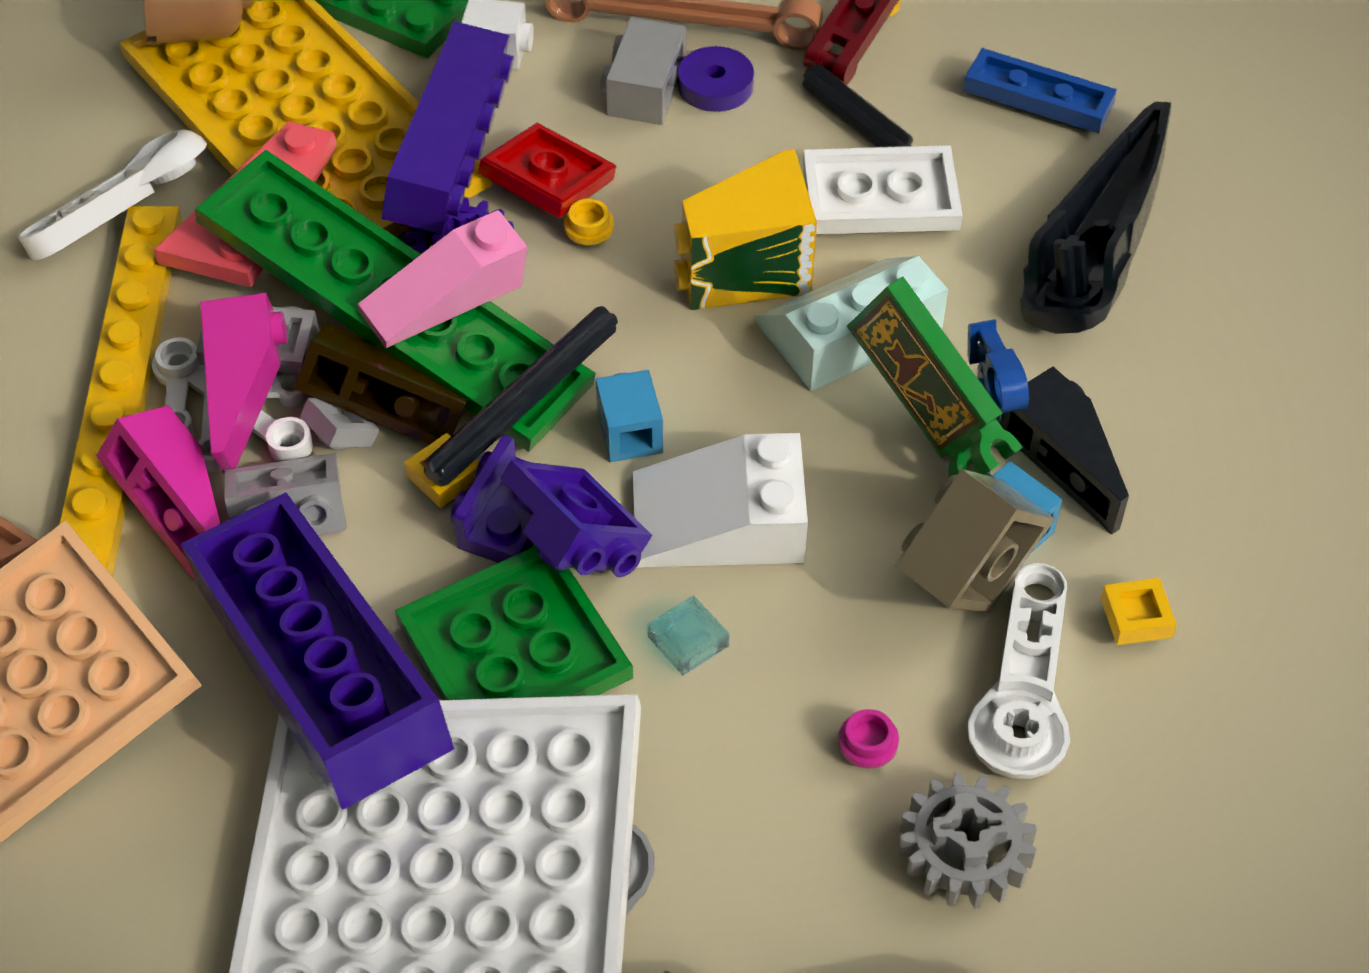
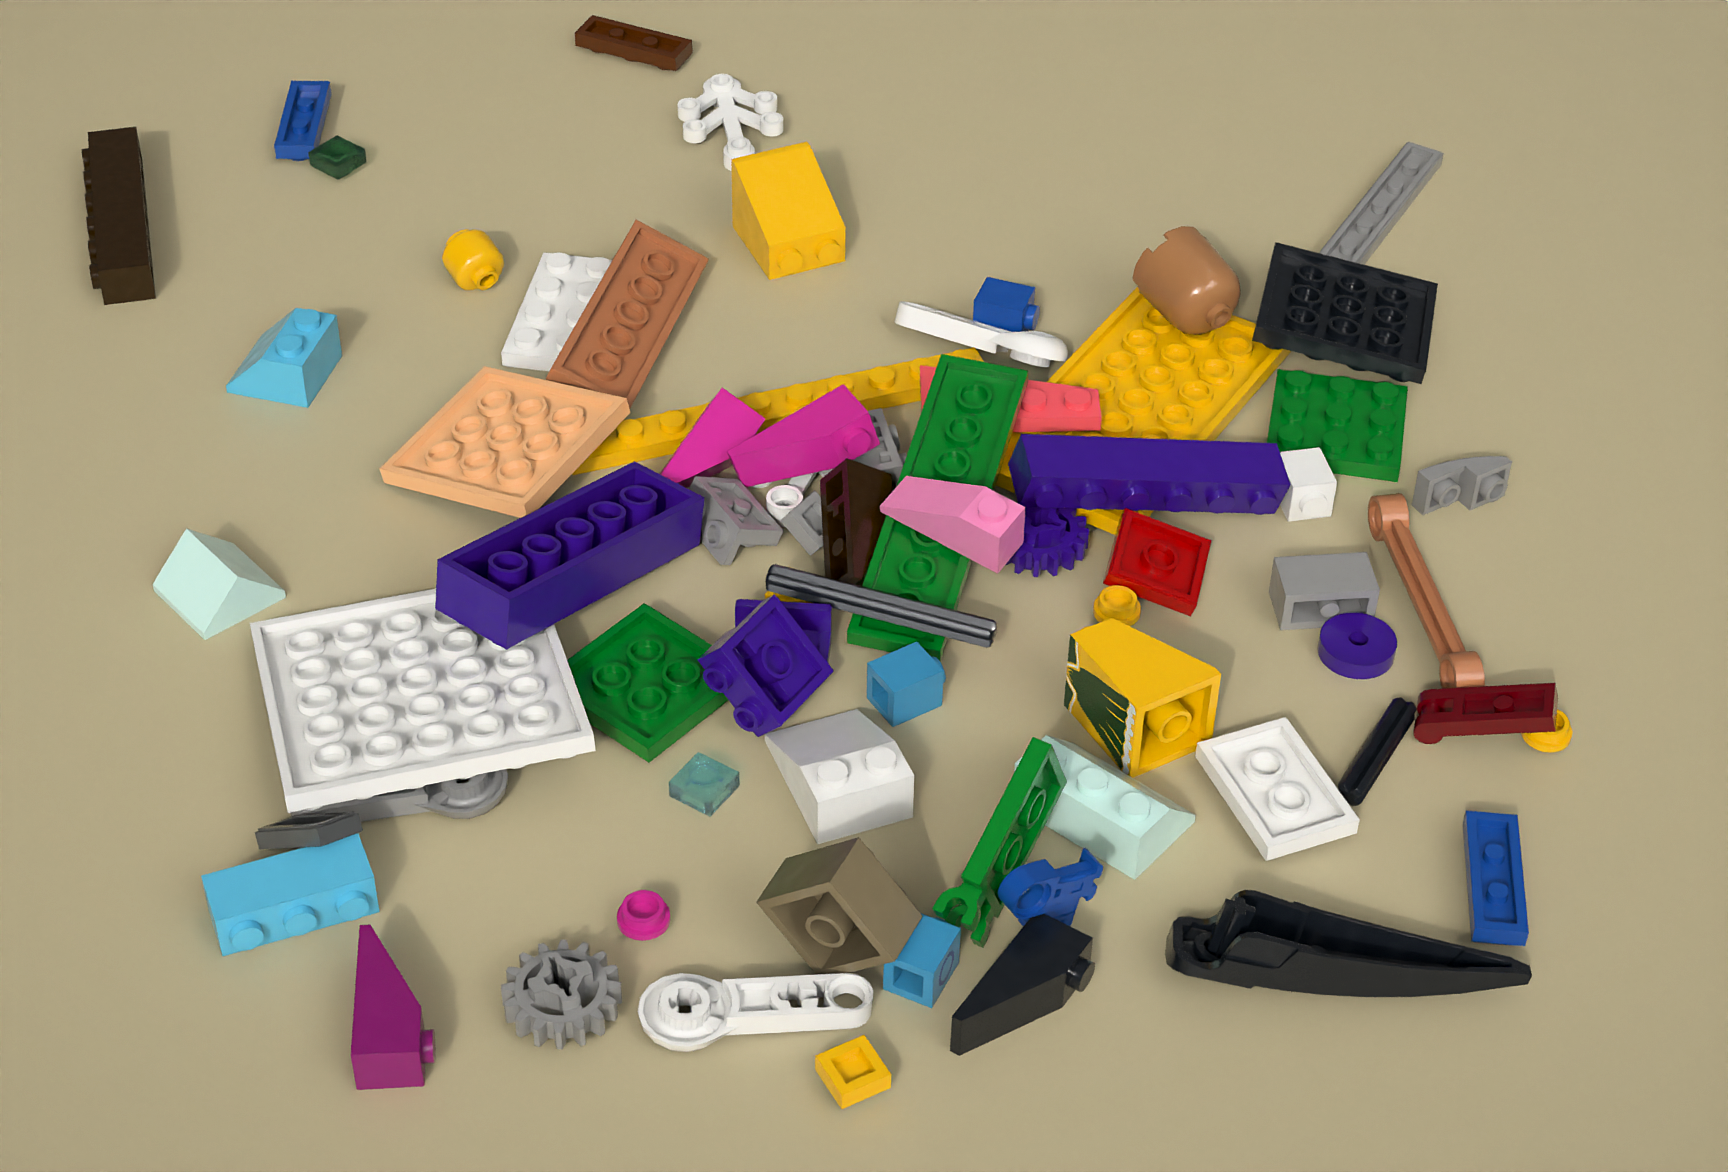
camera: 70 degrees right, 10 degrees down
(85, 158) = (1006, 305): none -> blue brick

